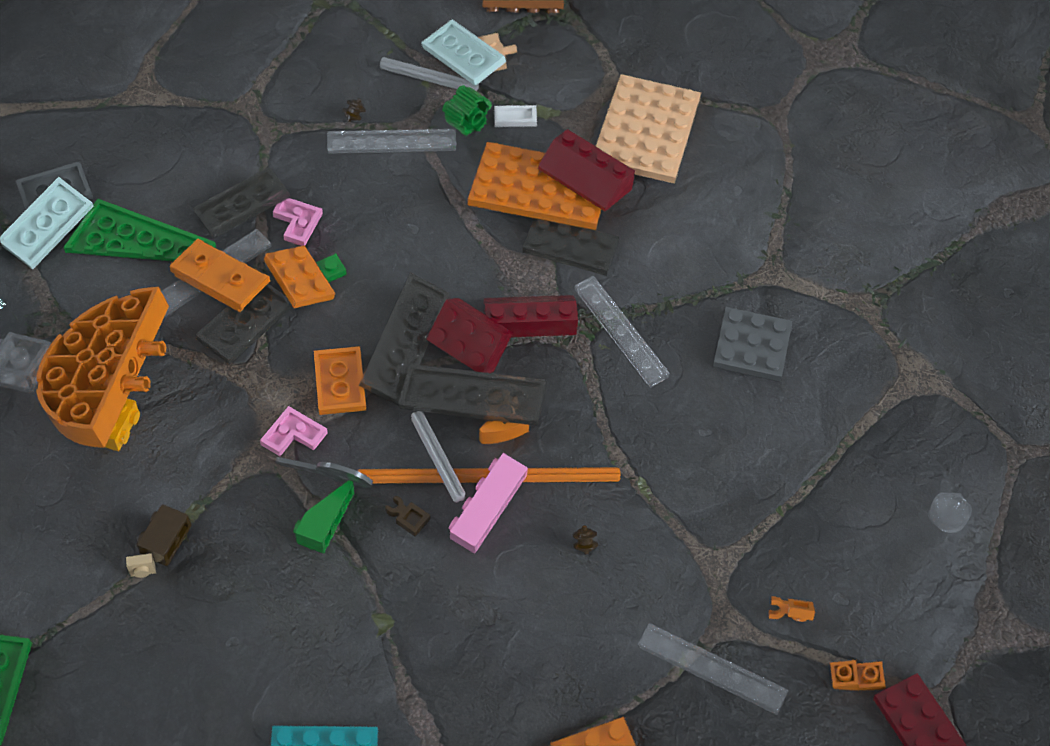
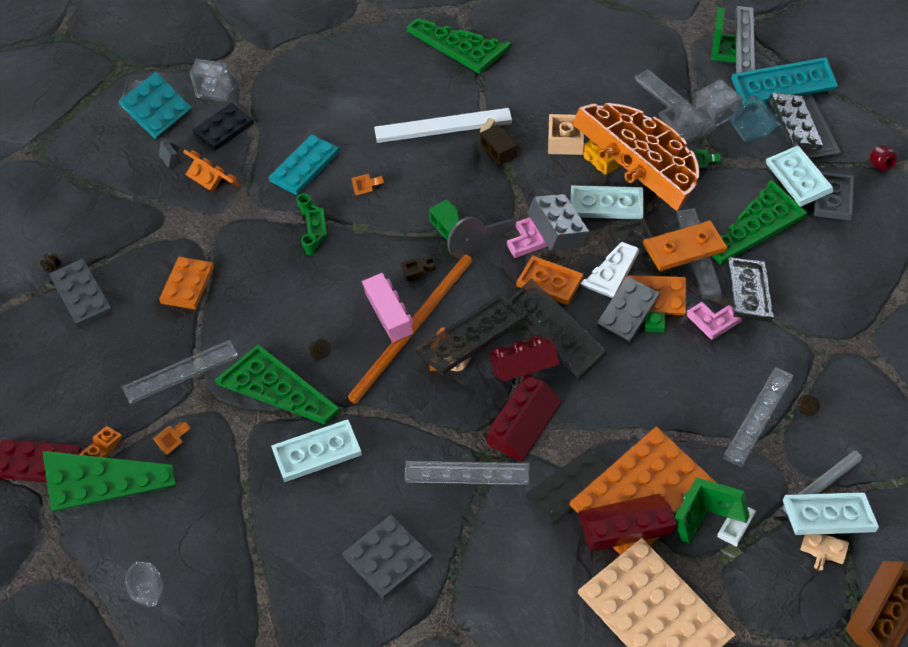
camera: 130 degrees right, 5 degrees down
(59, 319) = (703, 158): none -> green plate
(105, 471) = (564, 136): none -> light nougat brick
(158, 631) = (440, 125): none -> white tile
(189, 385) = (608, 202): none -> light aqua plate
(257, 405) = (557, 222): none -> dark grey brick
(293, 324) = (612, 272): none -> white wing
(317, 651) = (363, 183): none -> orange plate
(337, 287) = (628, 309): none -> dark grey plate
(419, 664) = (315, 224): none -> green plate
(438, 456) = (440, 298): light grey axle -> none
(467, 110) = (754, 475): green brick -> none
(531, 135) = (709, 497): none -> green bracket
(658, 564) = (270, 381): none -> green wing
(700, 466) = (316, 450): none -> light aqua plate
(894, 641) = (90, 479): none -> green wing

